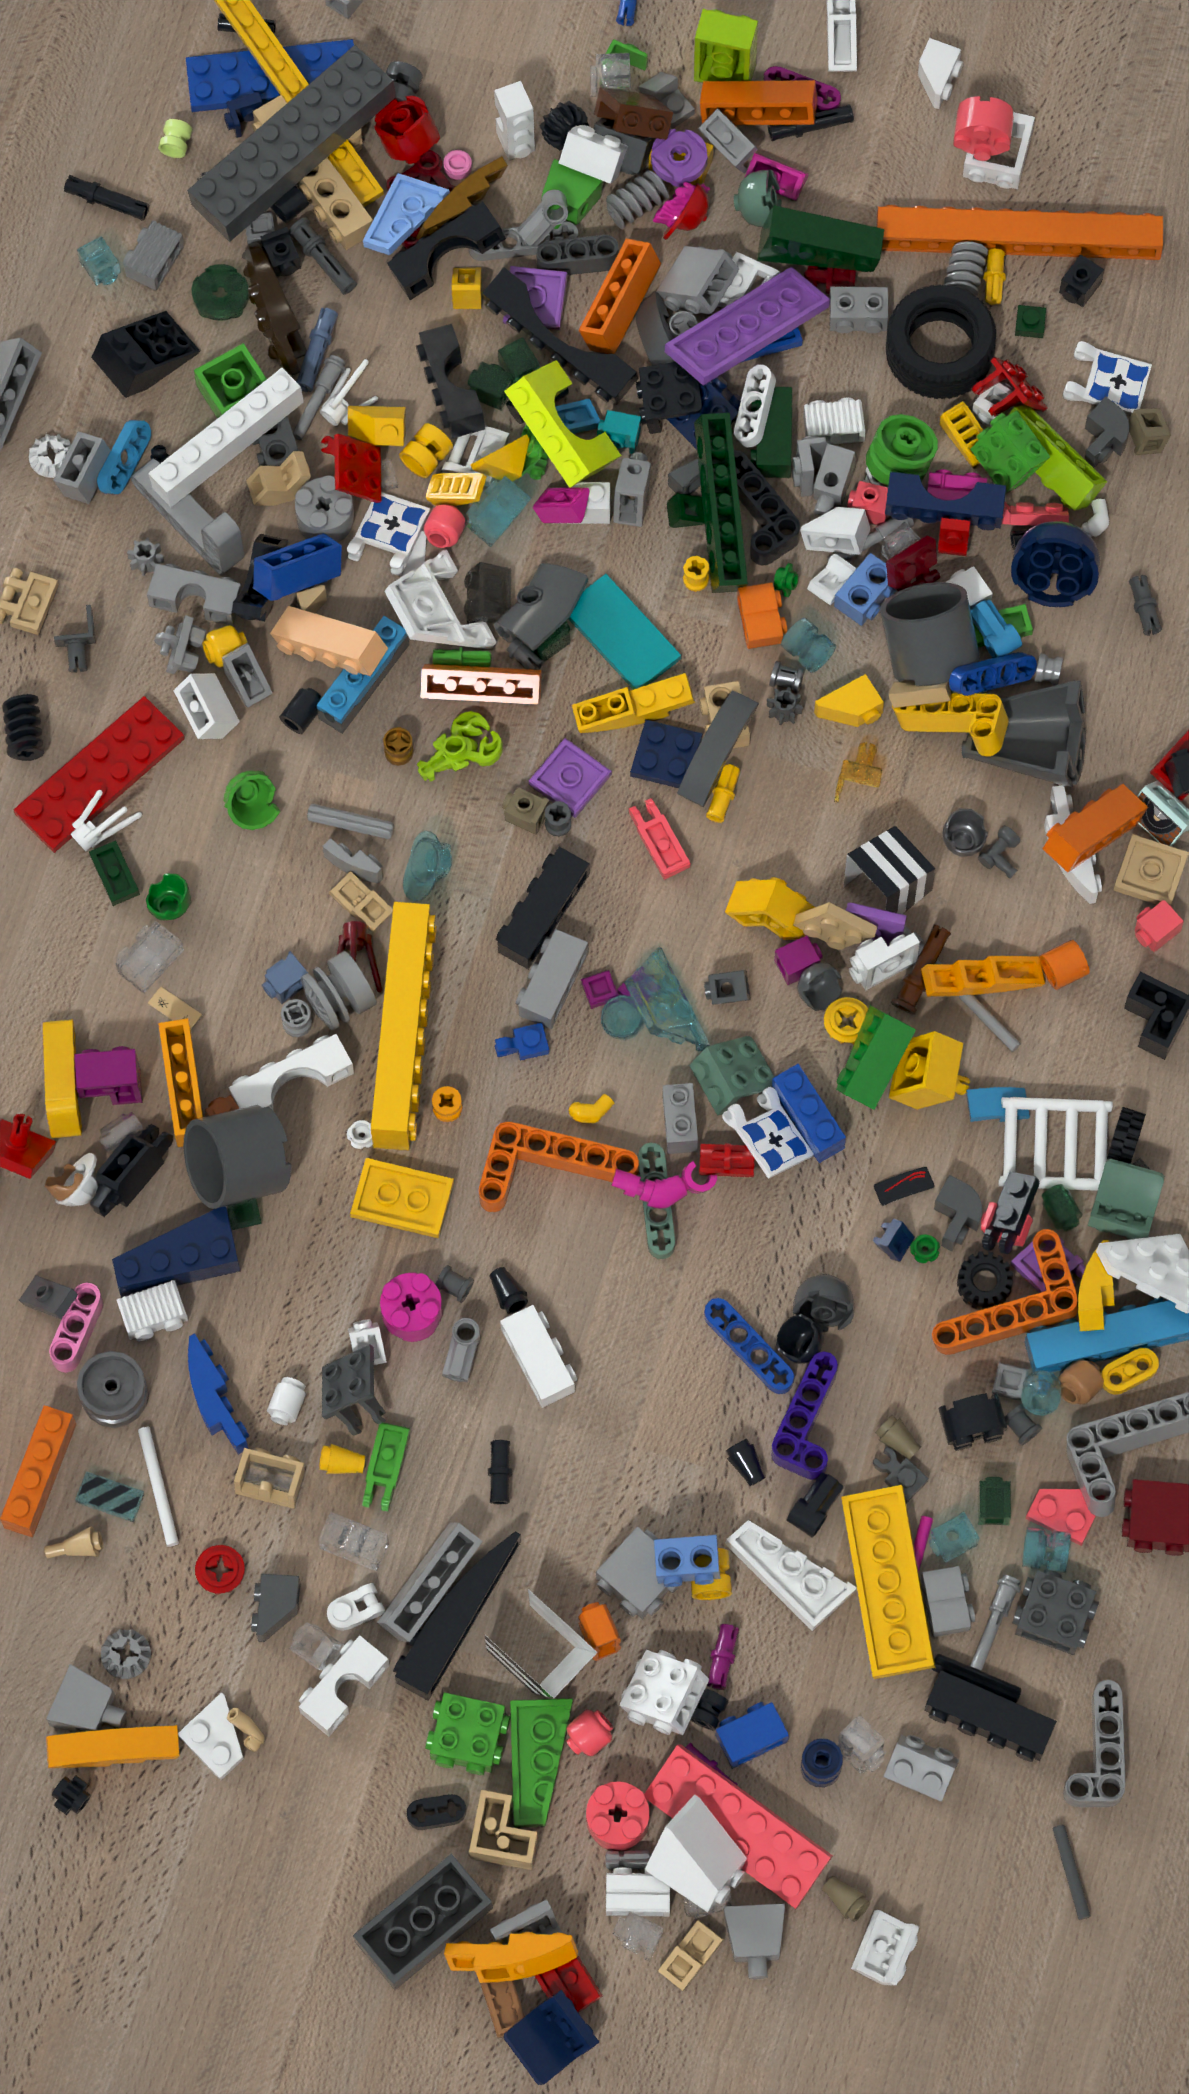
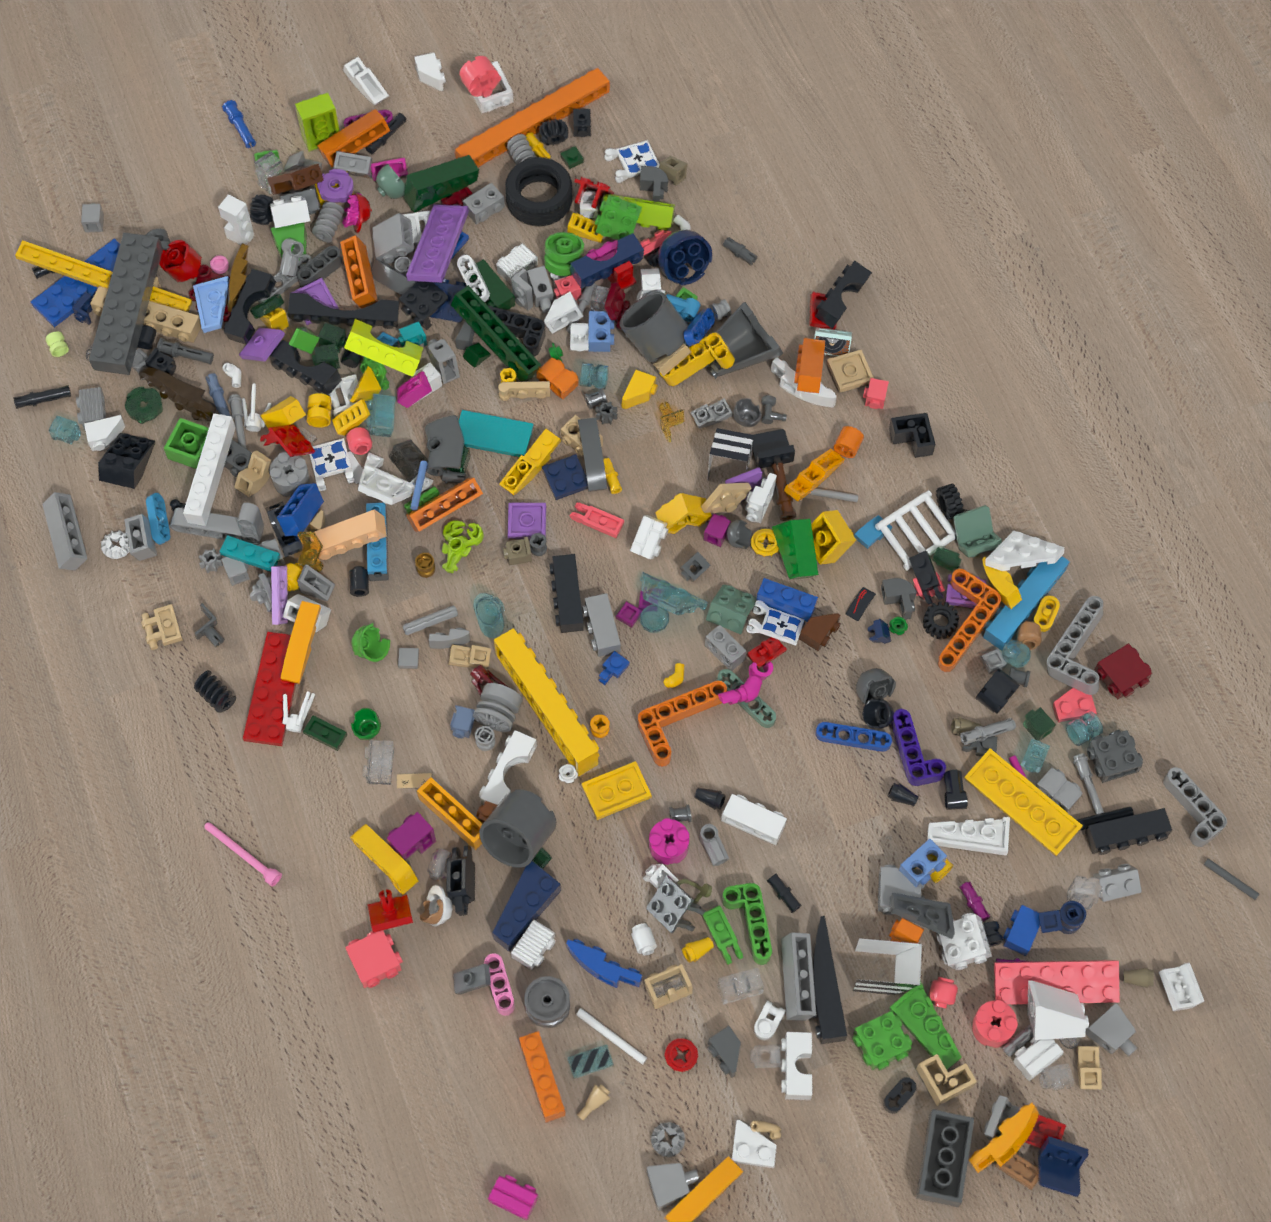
camera: 40 degrees left, 5 degrees down
(143, 297) = (103, 432): none -> white slope
(166, 737) = (300, 642): none -> light orange slope
(189, 656) = (279, 594): none -> lavender tile
(194, 581) = (249, 553): none -> teal plate
(267, 632) = (311, 551): none -> clear yellow bracket
(286, 851) = (408, 658): none -> light grey tile
(363, 327) = (234, 372): none -> white arm
(407, 1395) = (705, 890): none -> olive piece
(423, 312) = (262, 344): none -> medium lavender plate
(429, 1479) = (753, 924): none -> bright green beam
(467, 637) = (418, 486): none -> medium blue bar
(470, 264) = (267, 306): none -> clear green beam
(477, 342) = (304, 339): none -> bright green slope
(638, 1620) = (924, 912): none -> dark grey wing
(700, 907) = (649, 537): none -> white brick
(705, 602) = (523, 390): none -> tan plate
(786, 1746) = (1050, 921): none -> dark blue tile
(819, 1180) = (818, 630): none -> reddish brown slope
(909, 1459) = (981, 733): none -> light grey pin
(921, 803) = (712, 414): none -> light grey slope
(958, 902) = (772, 448): none -> black bracket
(978, 569) = (650, 281): none -> white slope
(1029, 269) = (553, 132): none -> black gear

